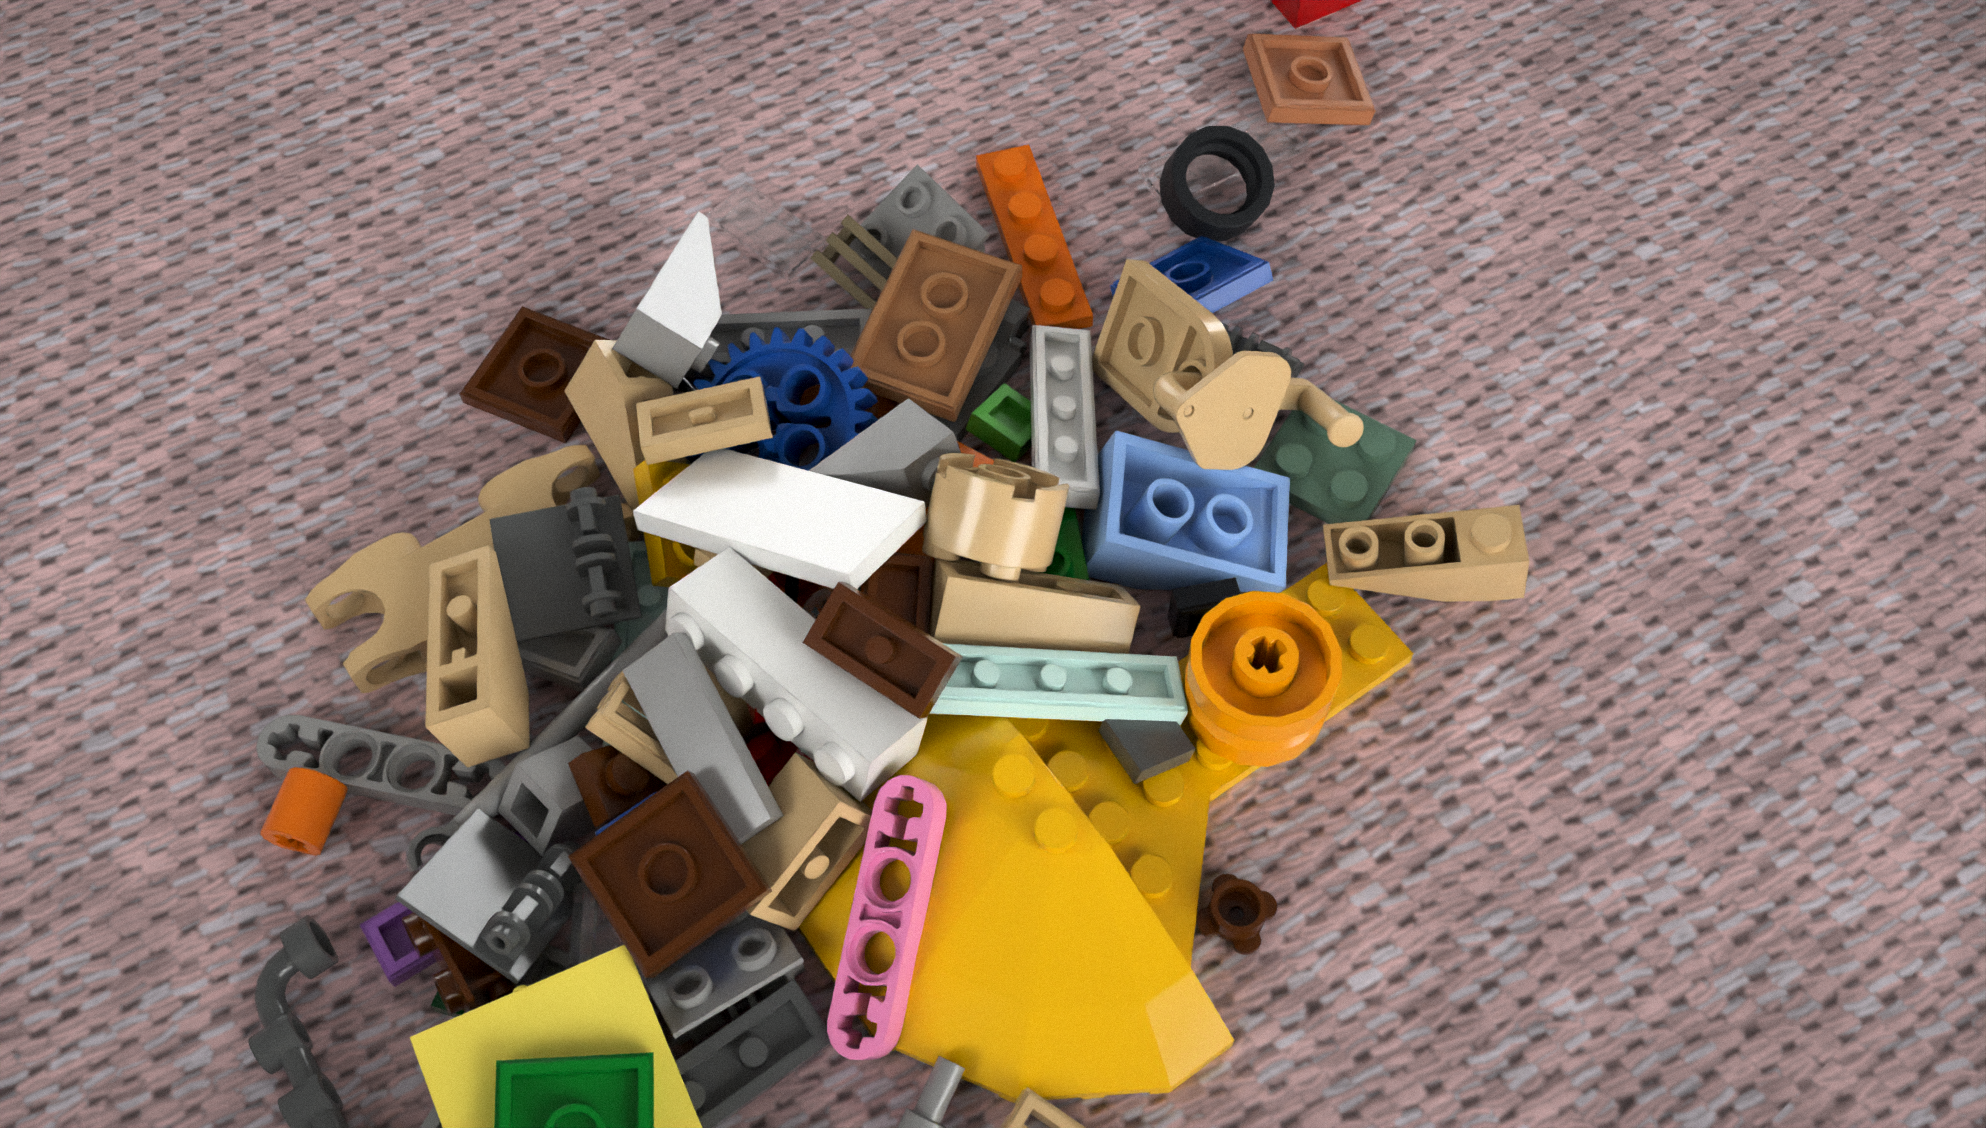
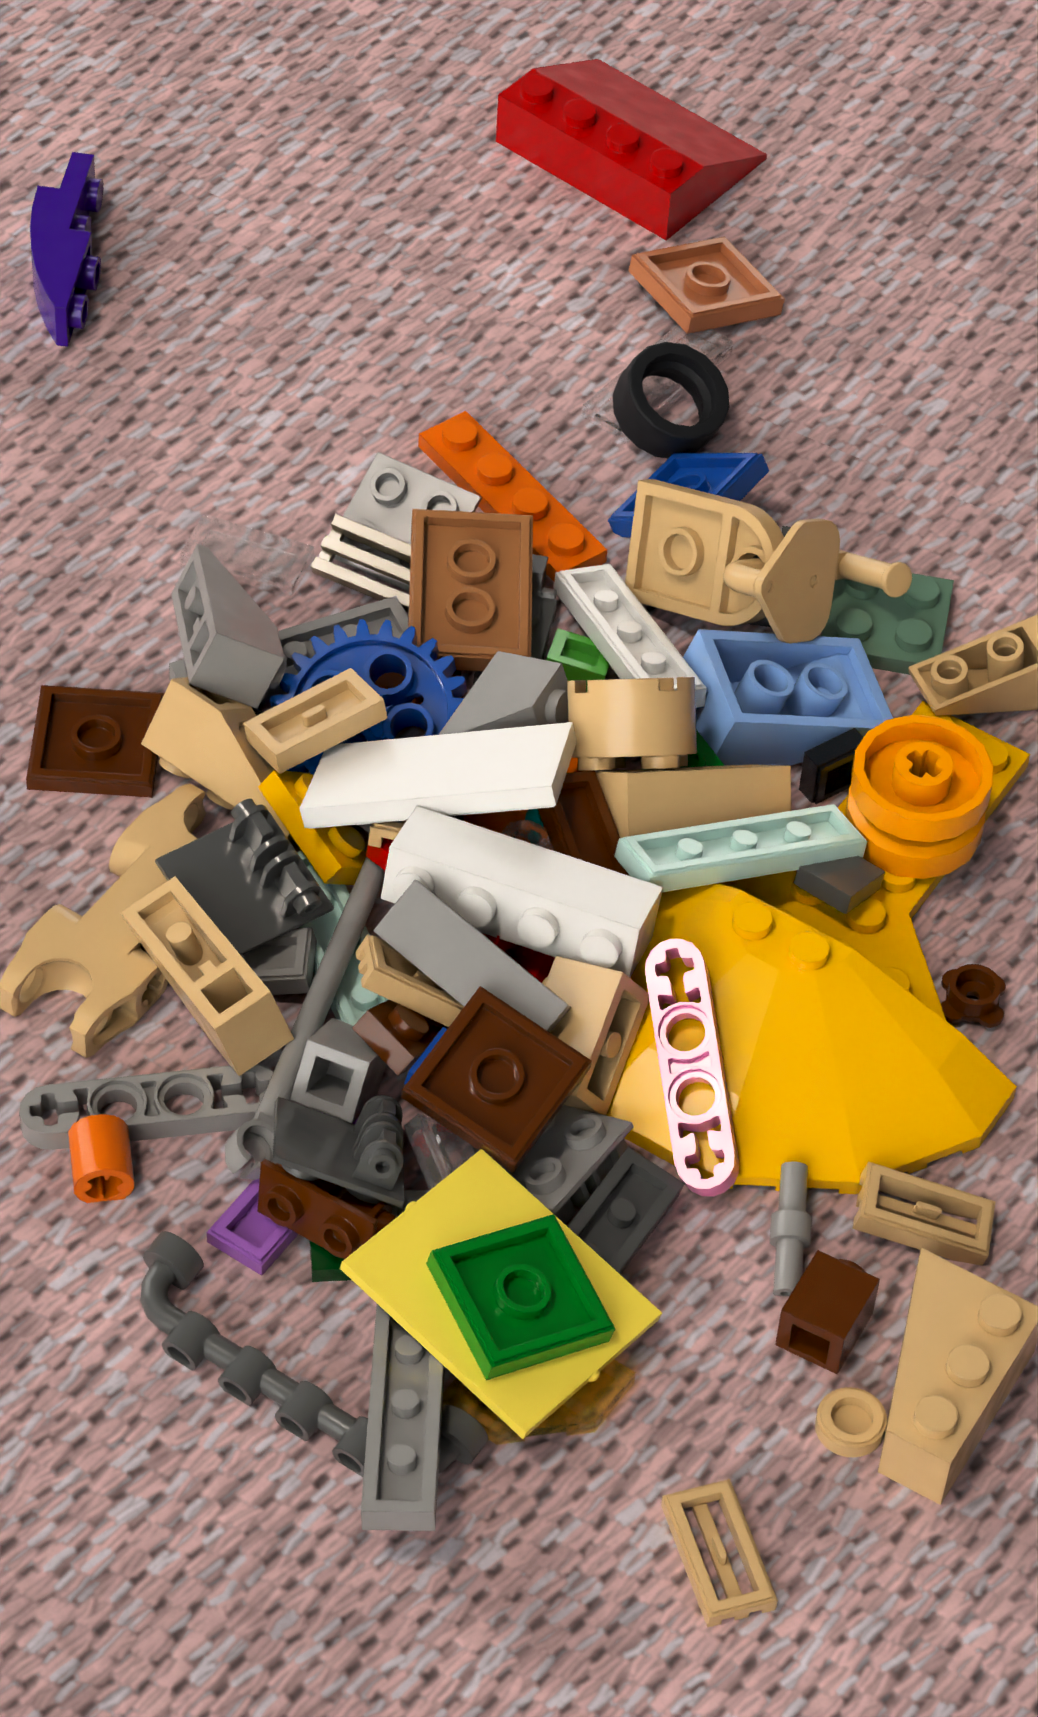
camera: 25 degrees left, 10 degrees down
(882, 650) = (606, 839): reddish brown plate -> none

